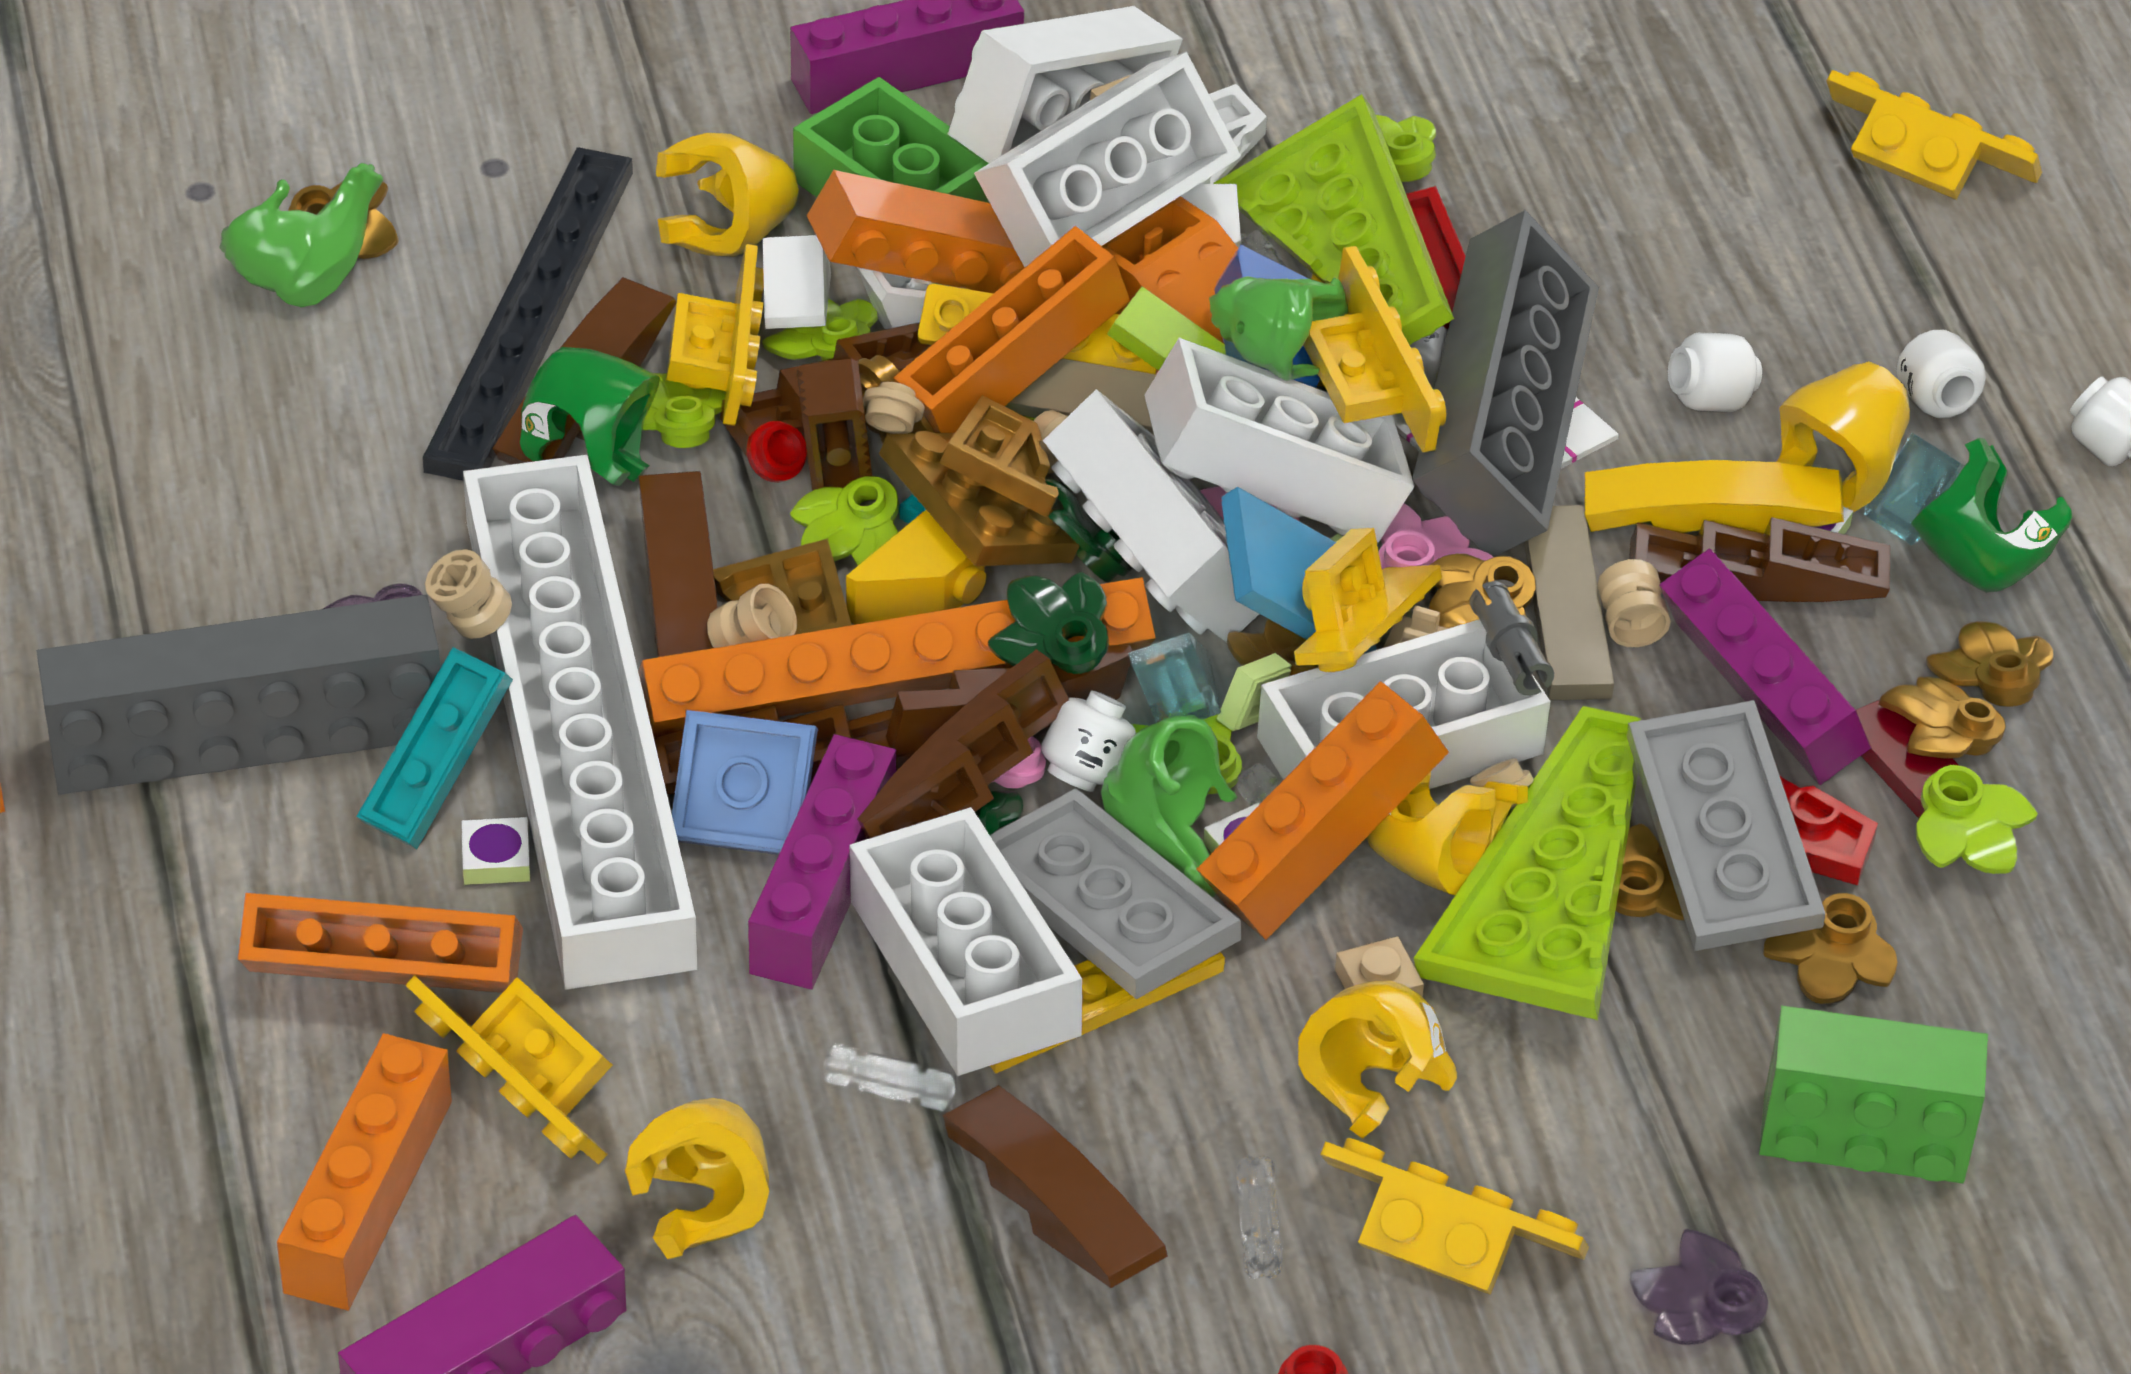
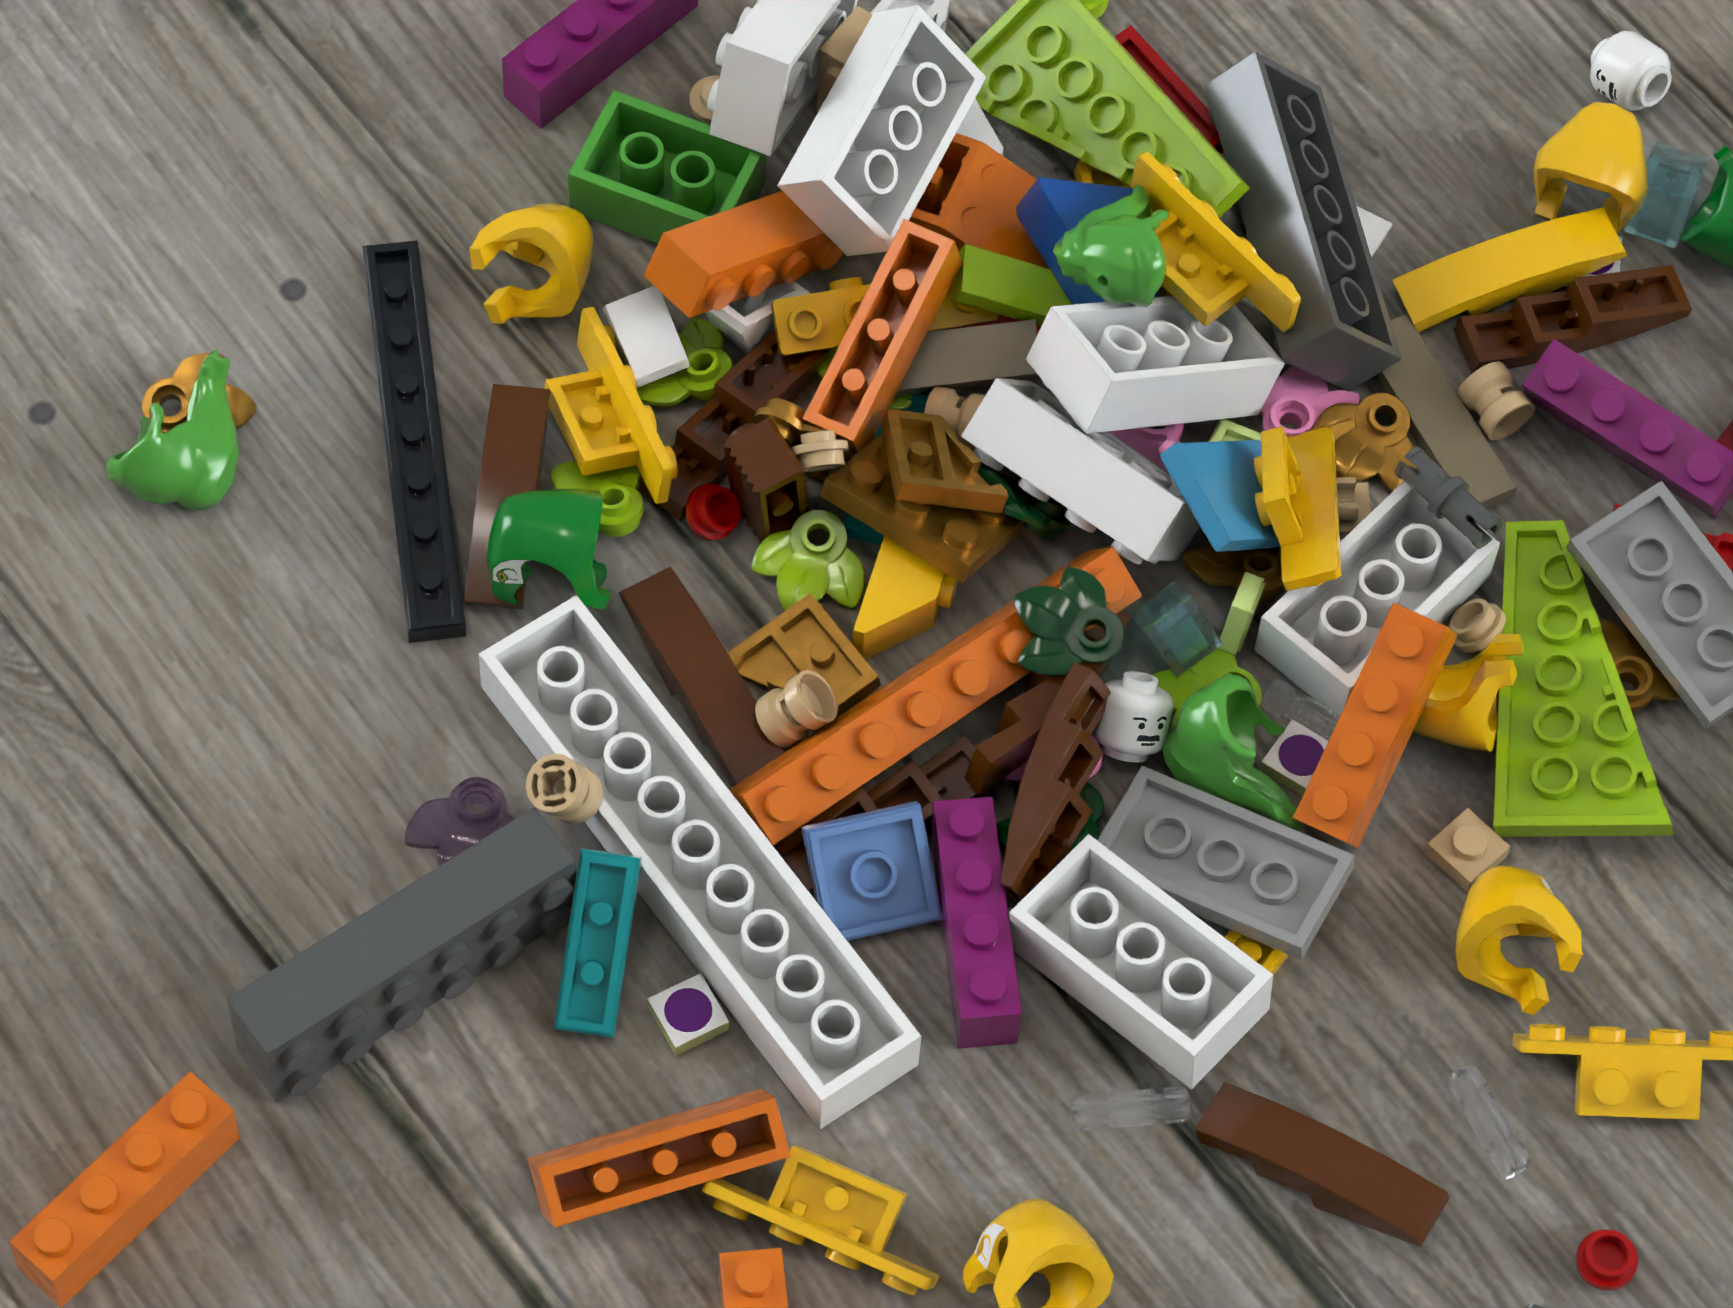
camera: 25 degrees left, 15 degrees up
(1714, 372) = (1449, 136): white head -> none

